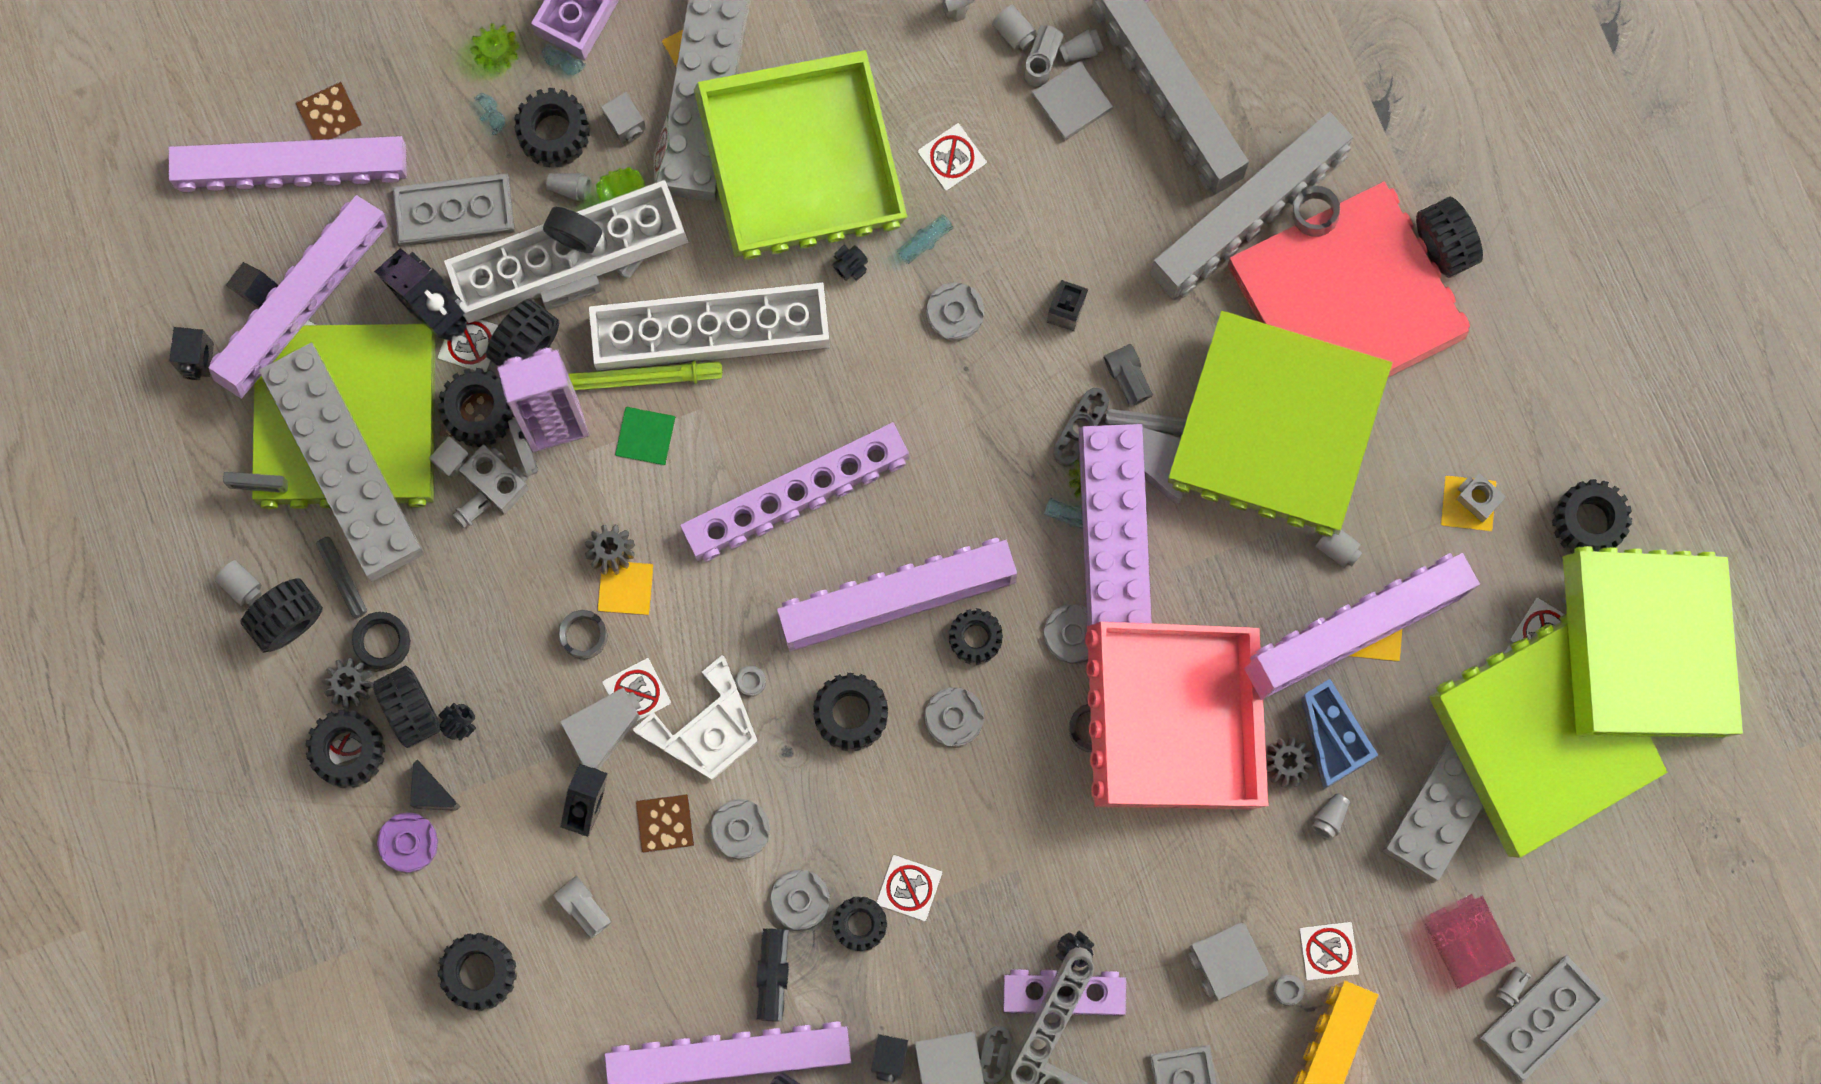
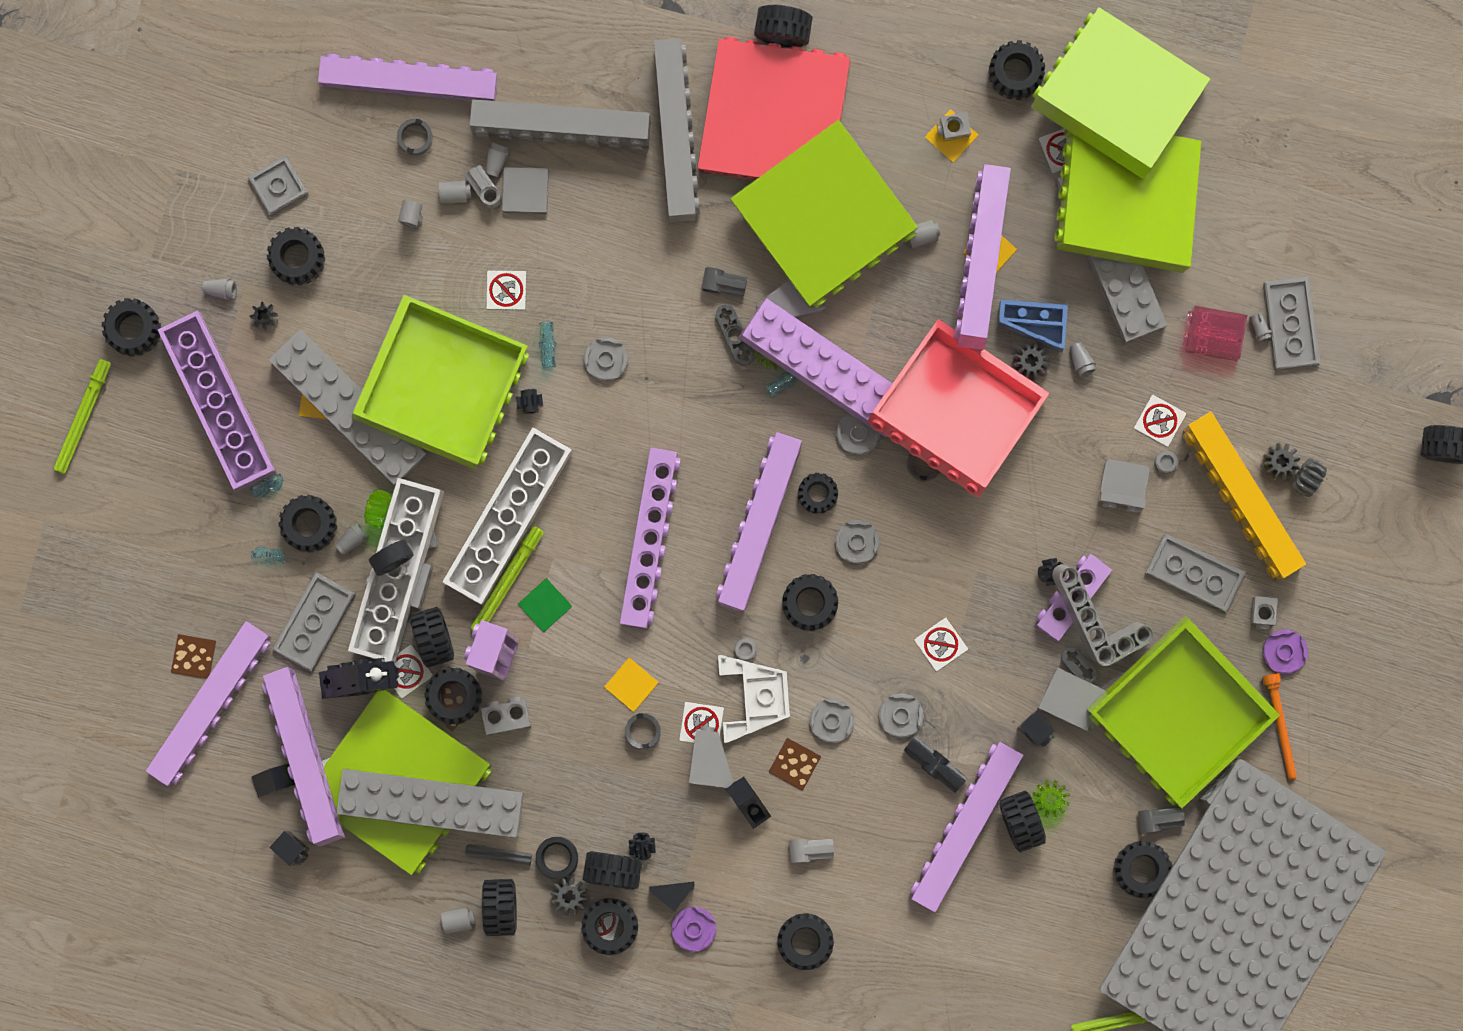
camera: 50 degrees left, 5 degrees up
(255, 482) = (404, 865): dark grey tile -> none
(449, 457) = (474, 734): light grey piece -> none
(471, 510) = (514, 745): light grey pin -> none
(499, 57) = (225, 530): clear neon green gear -> none
(523, 448) = (500, 684): light grey tile -> none
(606, 538) = (598, 685): dark grey gear -> none
(624, 118) = (334, 474): light grey brick -> none
(661, 149) = (373, 466): sticker -> none
(877, 930) = (928, 689): black tyre -> none
(1067, 305) = (653, 287): black slope -> none
(1158, 423) = (761, 292): light grey axle -> none
(1324, 194) = (705, 80): dark grey piece -> none

